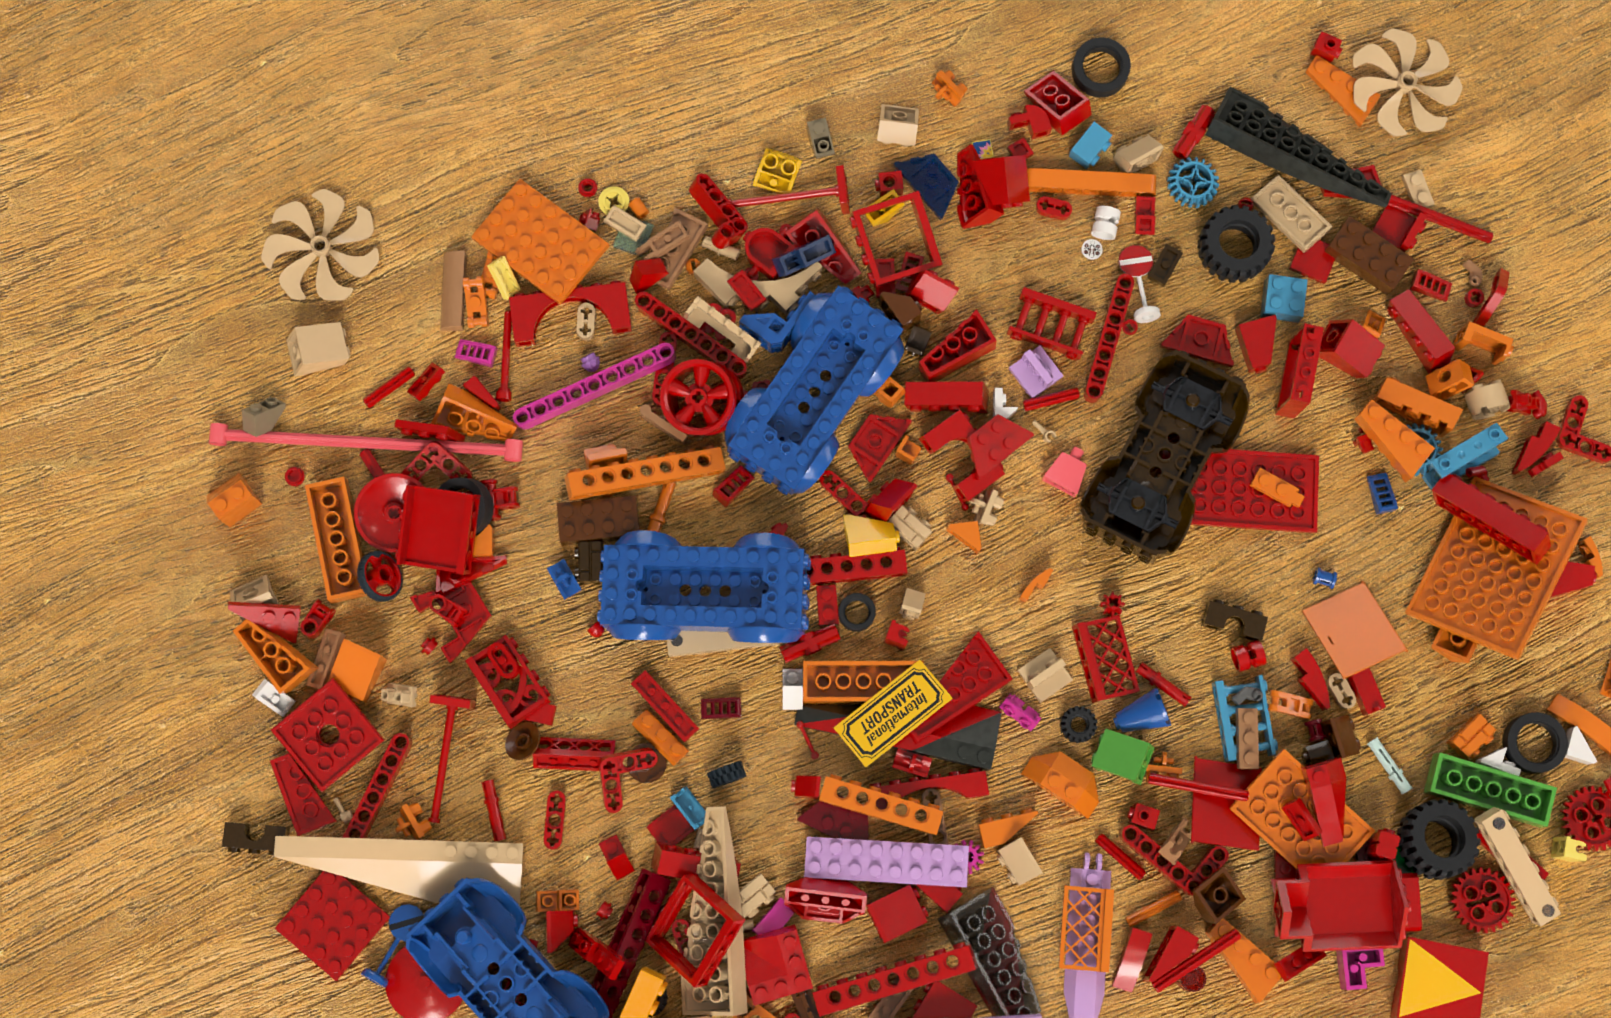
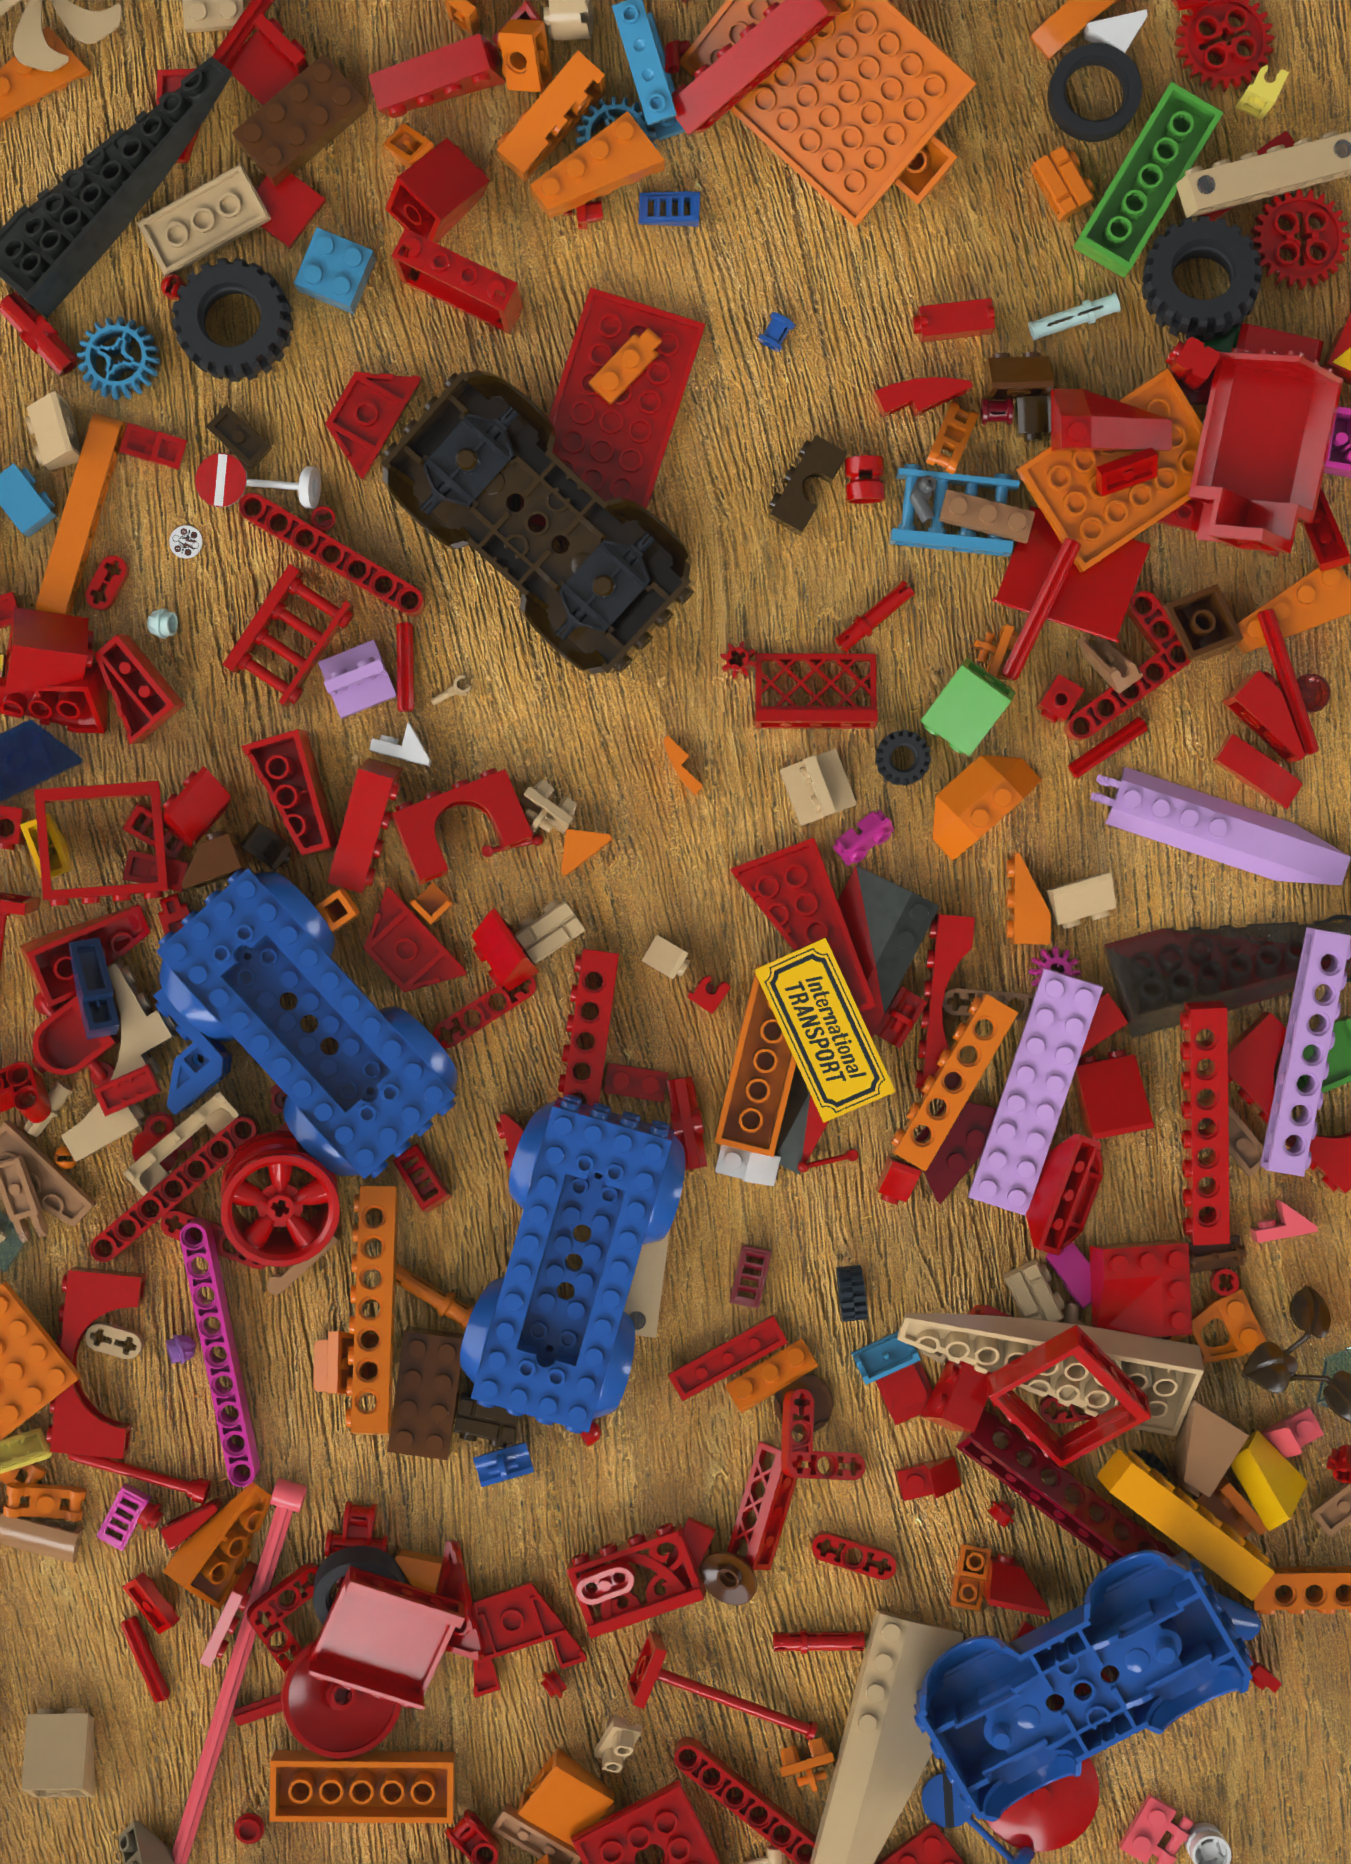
camera: 70 degrees left, 10 degrees up
(379, 575) = (433, 1748): red wheel -> none
(448, 610) = (513, 1644): red piece -> none
(480, 369) = (151, 1516): none -> red plate
(597, 953) = (1062, 1541): red slope -> none
(647, 273) = (62, 1231): red slope -> none
(856, 597) = (673, 1058): black tyre -> none
(869, 536) = (550, 997): yellow slope -> none
(995, 240) = (137, 687): none -> red wedge
(995, 442) = (455, 772): red wing -> none
(1038, 246) = (162, 623): none -> light aqua plate
(1067, 472) = (523, 673): coral torso -> none
(1104, 929) = (1208, 801): orange fence -> none
(1106, 221) = (148, 509): white wheel -> none
(1143, 714) = (912, 658): blue cone -> none
(1153, 908) = (1193, 719): orange axle -> none
(1257, 342) = (394, 330): red slope -> none
(1337, 693) = (947, 348): tan beam -> none
(1356, 630) = (866, 311): orange piece -> none
(1422, 289) = (347, 50): red slope -> none
(1495, 761) = (1105, 159): white slope -> none

